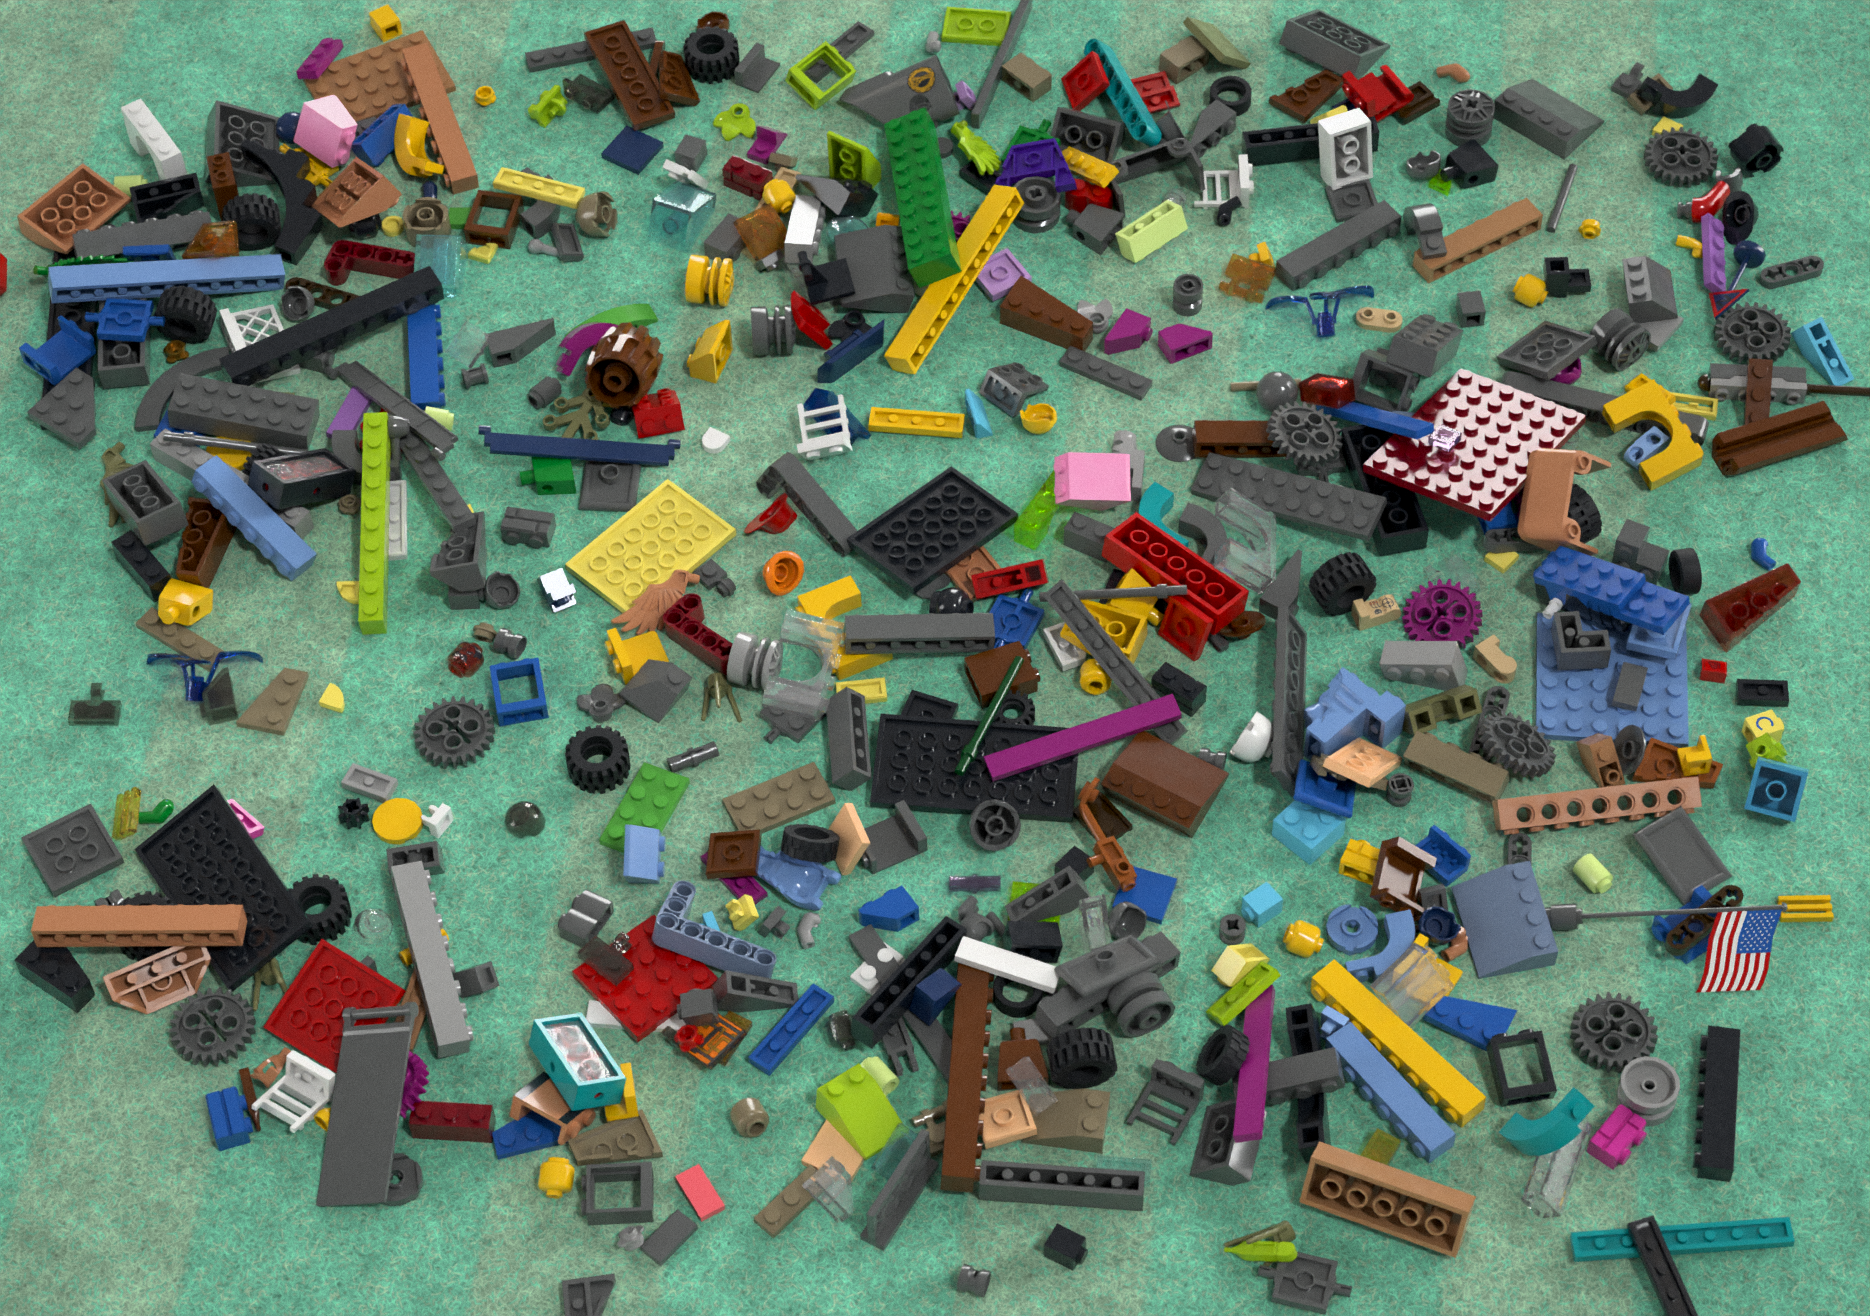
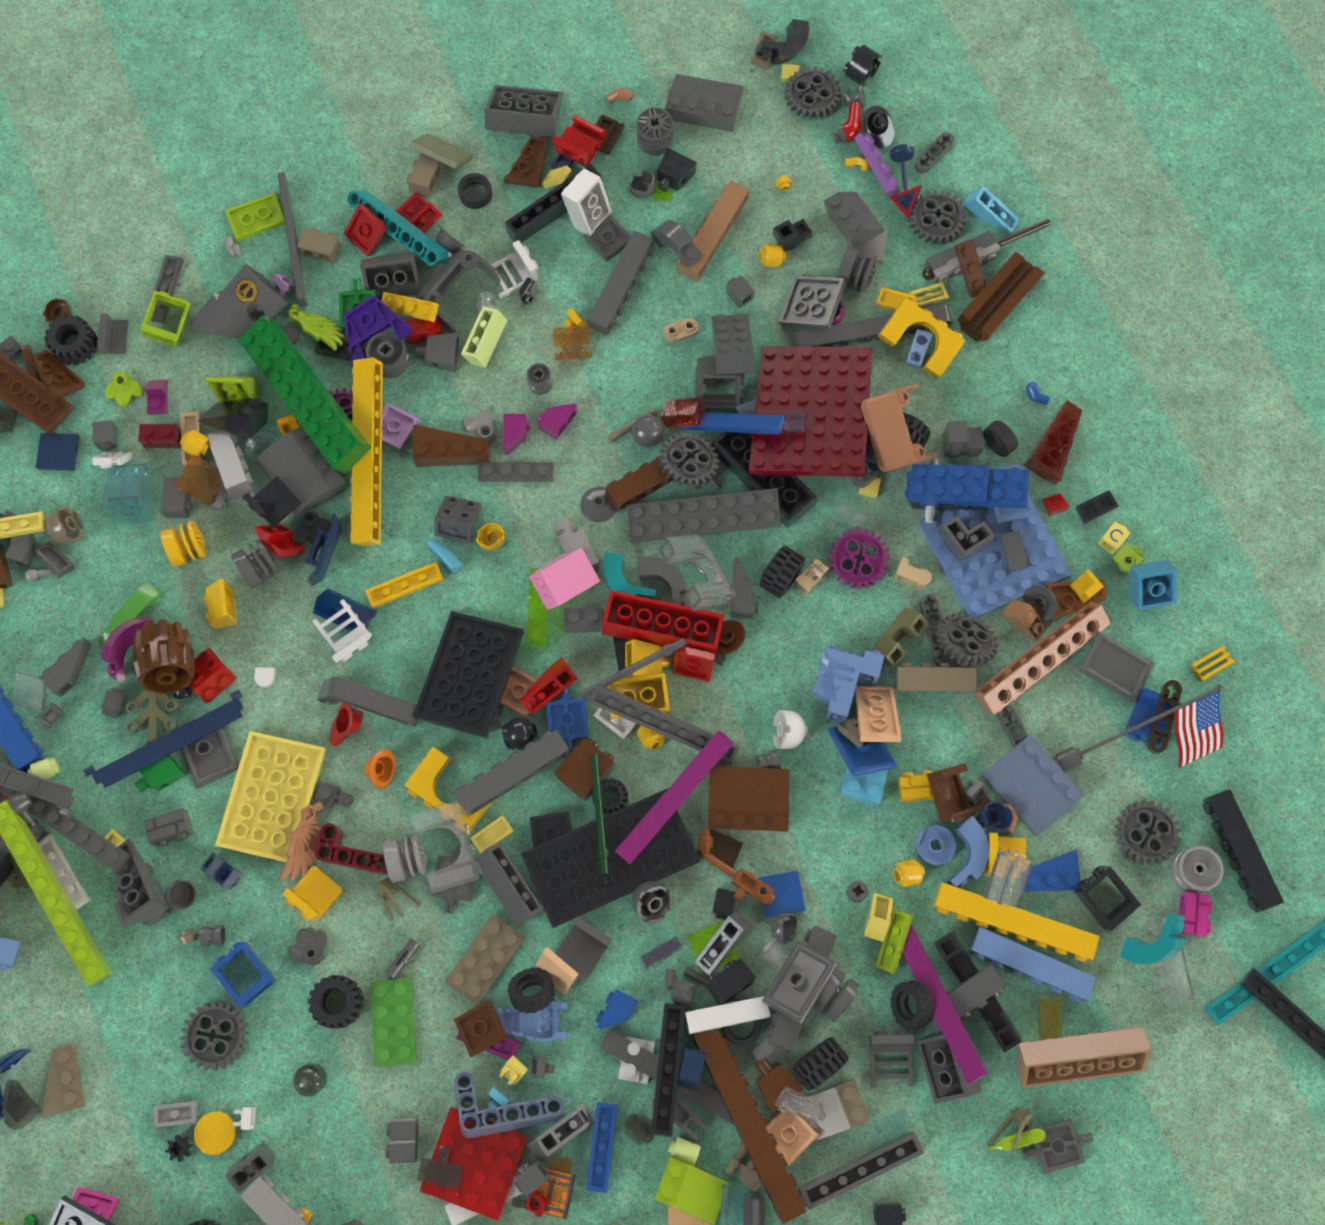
camera: 30 degrees left, 20 degrees up
(332, 699) = (104, 1054): light yellow tile -> none
(349, 591) = (61, 954): light yellow tile -> none
(465, 659) = (187, 967): clear red head -> none
(643, 855) = (417, 1070): medium blue slope -> none
(656, 688) = (343, 917): dark grey slope -> none
(783, 160) = (178, 406): dark tan plate -> none
(804, 929) = (564, 1055): light grey arm -> none
(1186, 690) = (714, 715): black brick -> none
(1213, 125) = (477, 219): dark grey slope -> none
(1261, 905) = (866, 861): medium azure brick -> none
(1289, 699) = (797, 686): dark grey plate -> none
(1325, 321) = (647, 351): clear blue plant -> none
(1331, 1021) = (966, 931): light blue tile -> none
(1399, 790) = (906, 720): dark grey wheel -> none
(1424, 663) = (868, 605): light grey wedge -> none
(1451, 858) = (960, 752): blue bracket -> none
(1562, 197) = (750, 167): dark grey bar -> none
(1593, 874) = (1068, 713): yellowish green brick -> none
(1627, 84) = (743, 47): dark grey plate -> none

